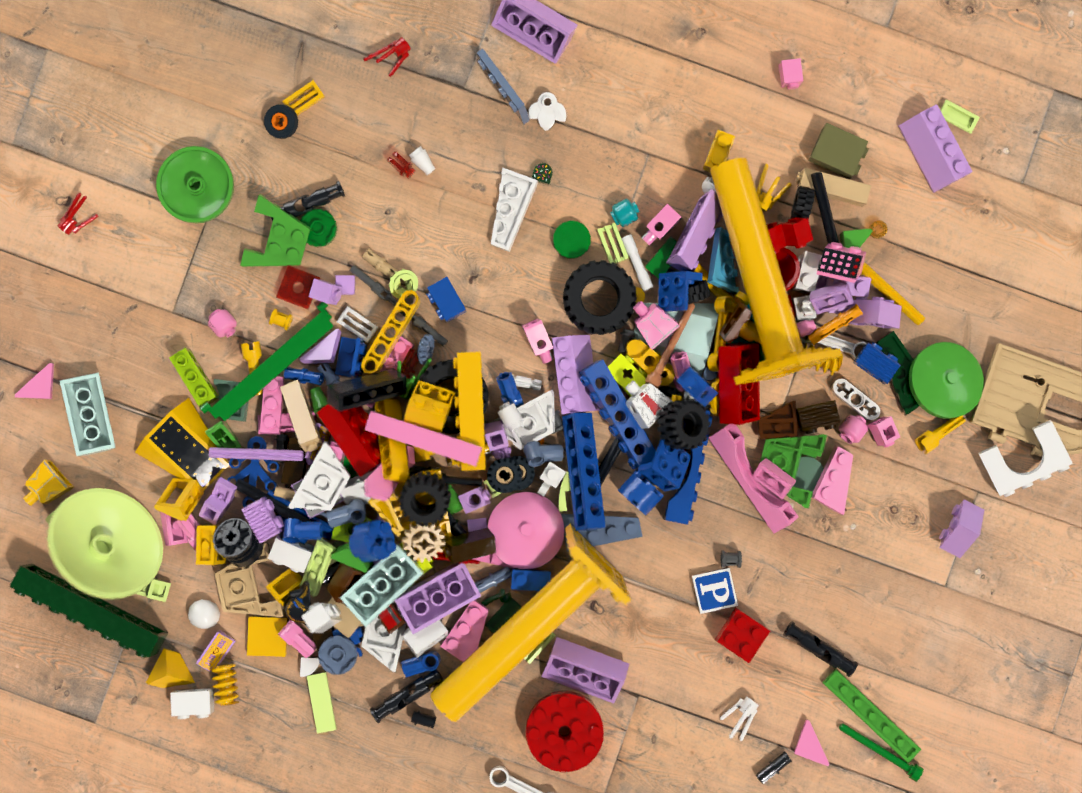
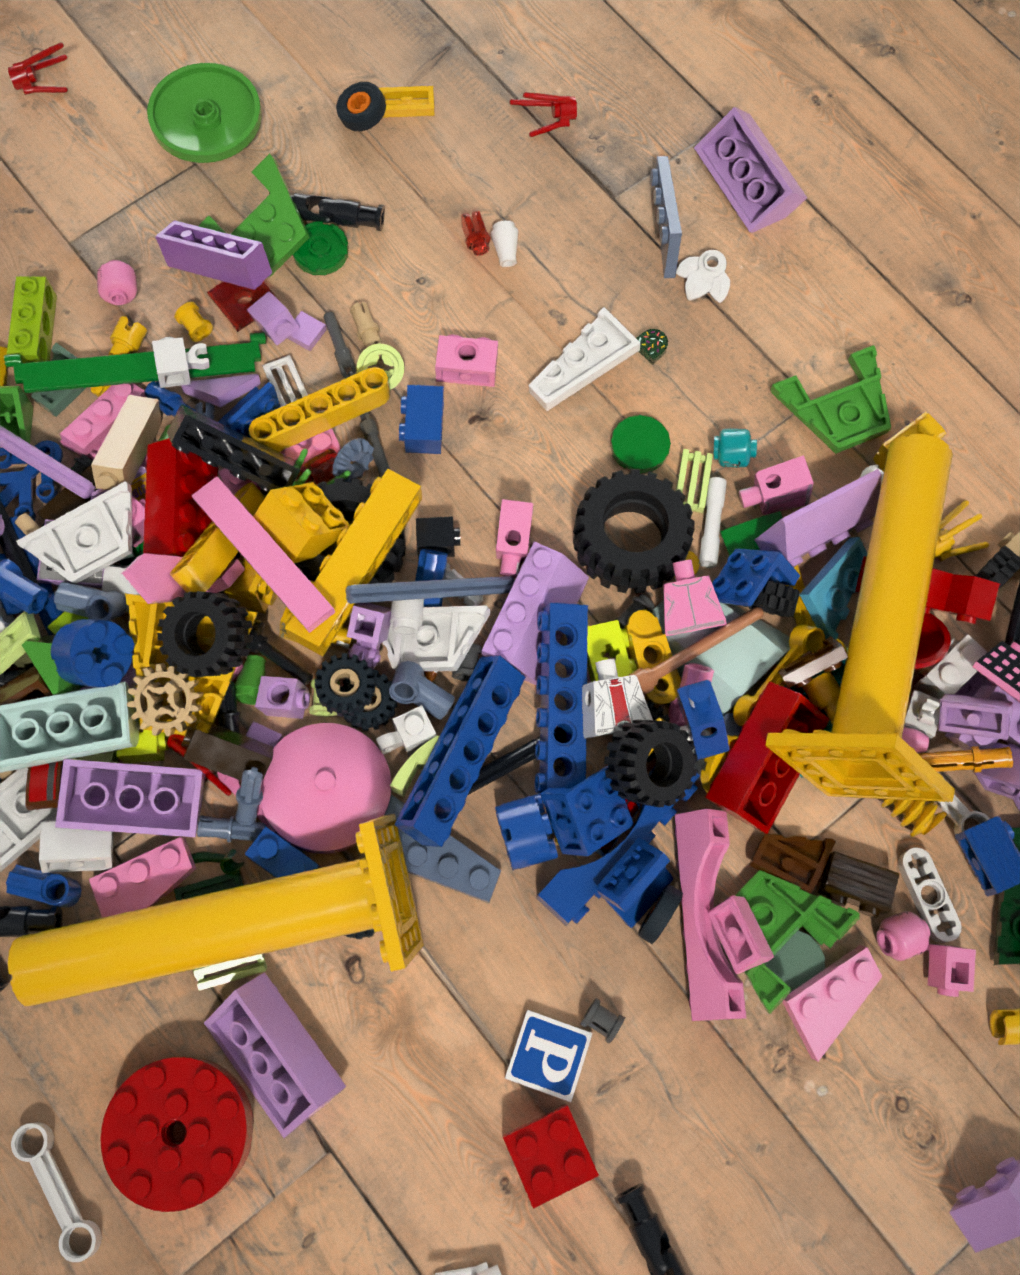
camera: 30 degrees right, 15 degrees down
(269, 276) = (214, 254): none -> medium lavender brick
(291, 353) = (173, 362): none -> white brick
(459, 249) = (453, 369): none -> bright pink brick
(494, 561) = (249, 796): none -> sand blue axle
(497, 363) = (437, 534): none -> black brick
(513, 404) = (428, 589): none -> sand blue axle
(674, 153) = (845, 415): none -> bright green wing
(708, 484) = (635, 881): none -> blue bracket
(729, 492) = (660, 914): none -> black bush

